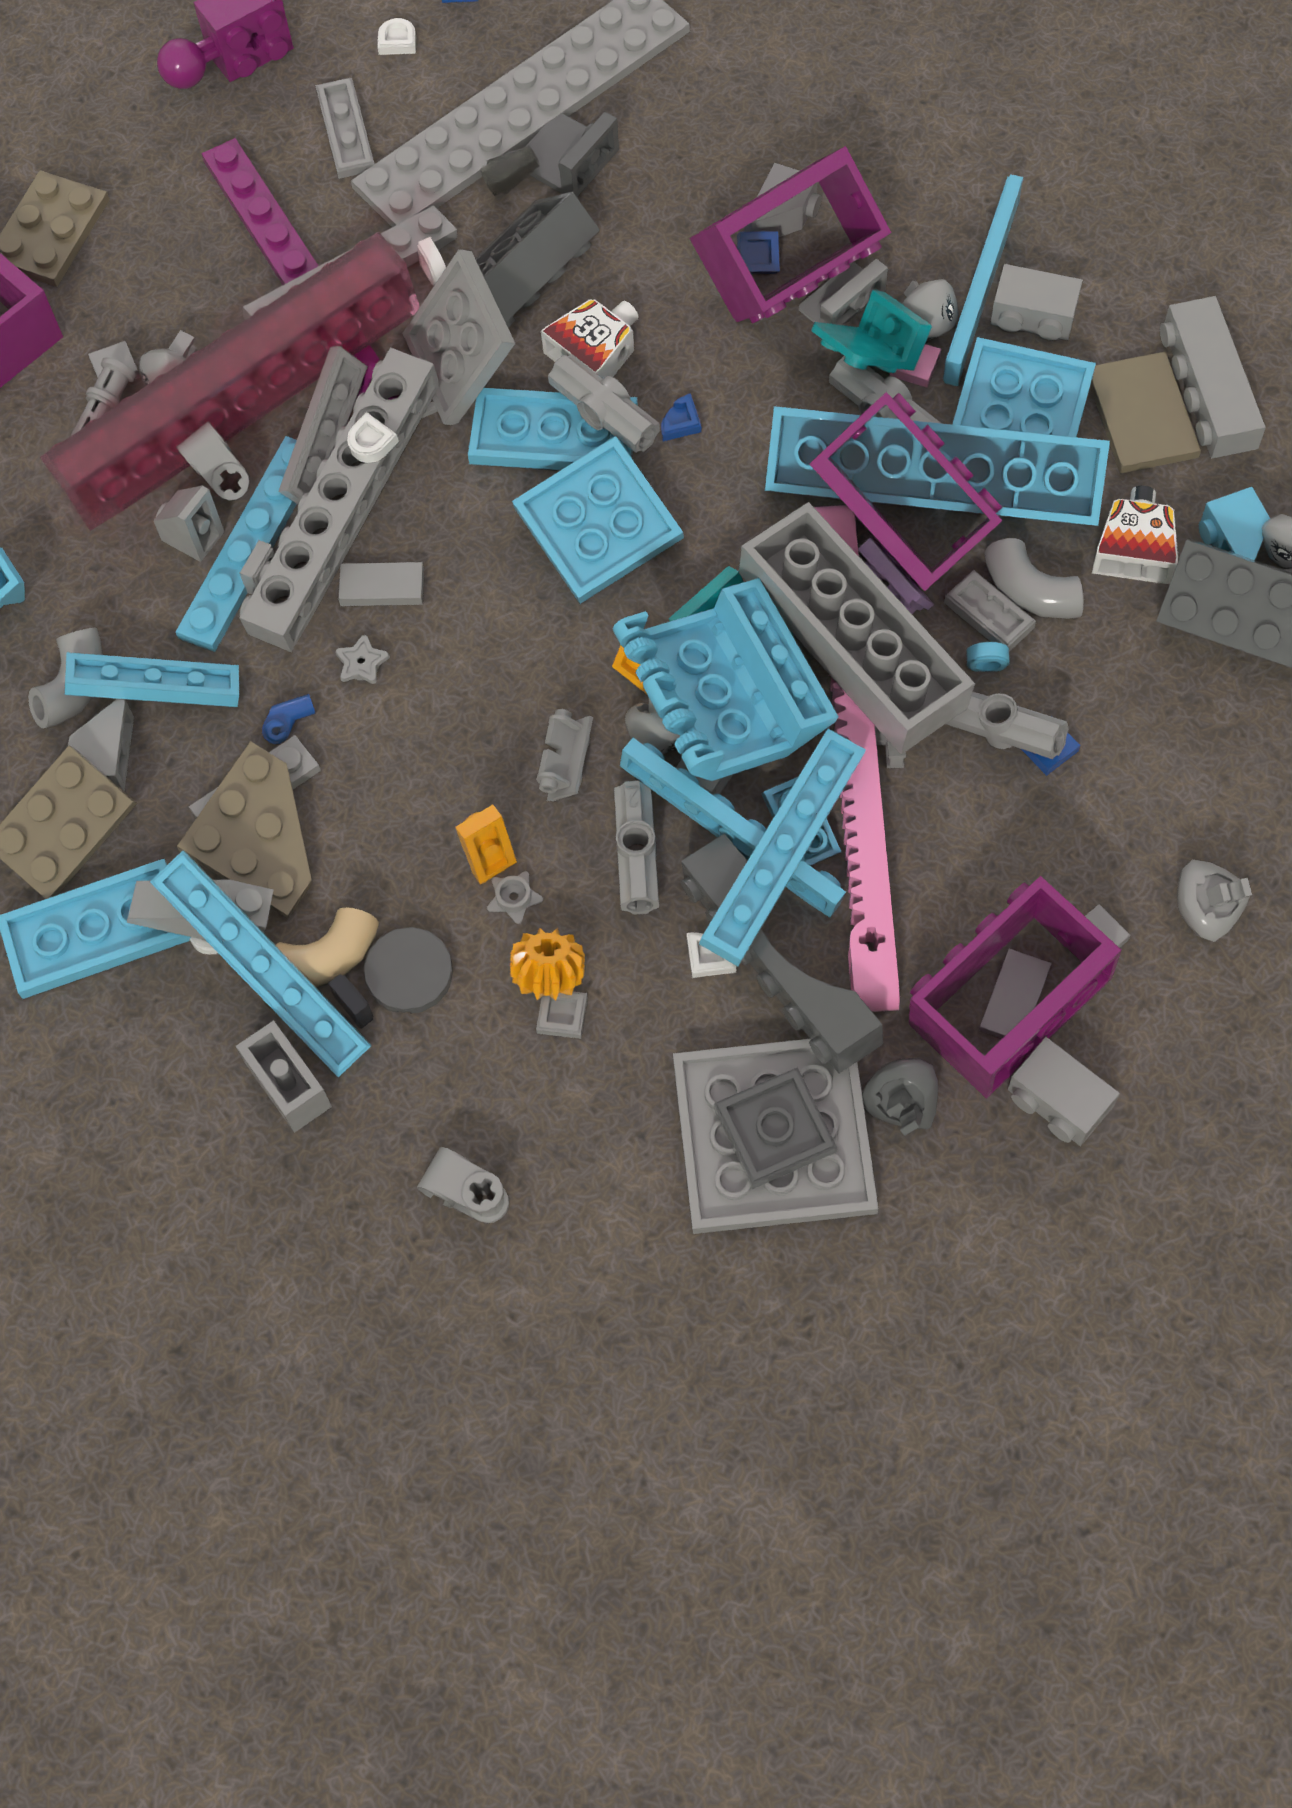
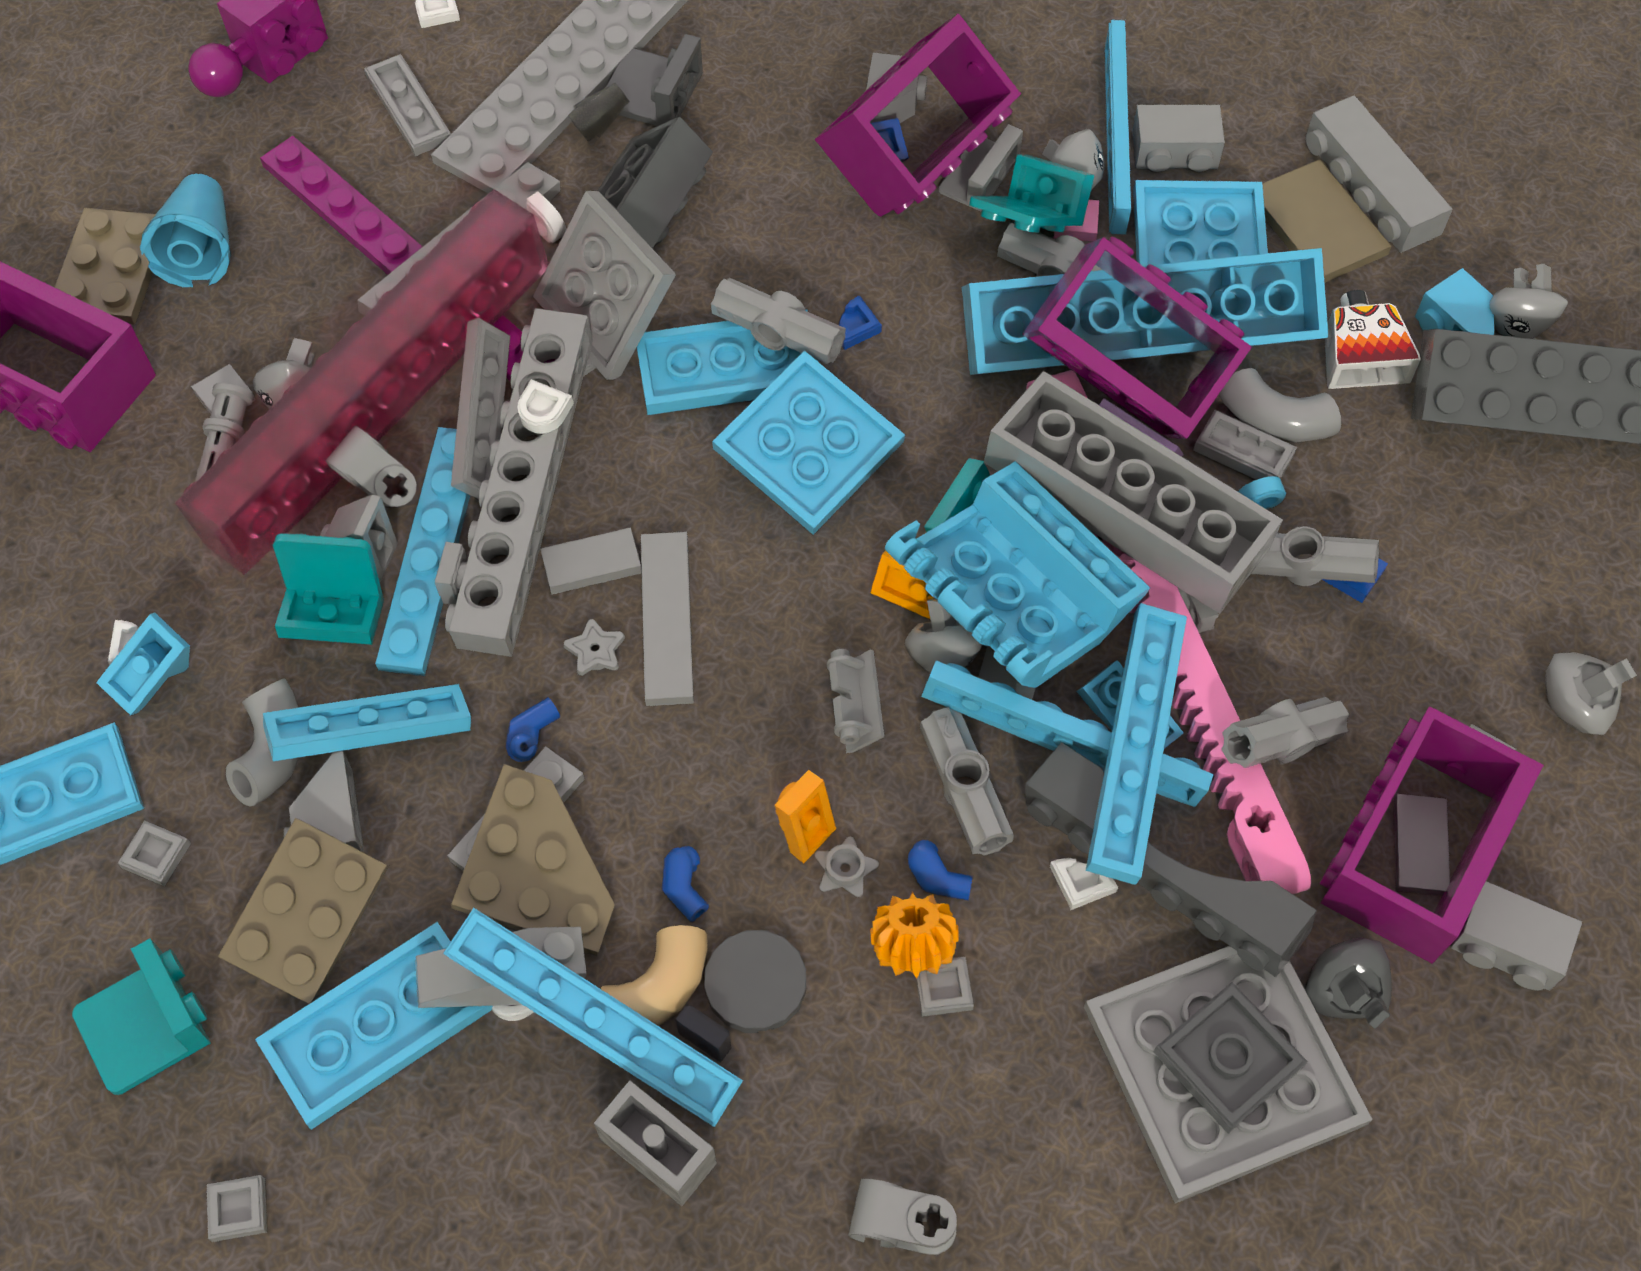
camera: 20 degrees left, 5 degrees down
(120, 213) = (189, 234): none -> medium azure cone
(153, 560) = (329, 589): none -> teal bracket
(369, 874) = (677, 882): none -> blue arm
(430, 649) = (666, 619): none -> light grey tile
(583, 919) = (933, 875): none -> blue arm
(593, 335) = (738, 253): torso -> none
(921, 870) = (1284, 732): none -> light grey piece

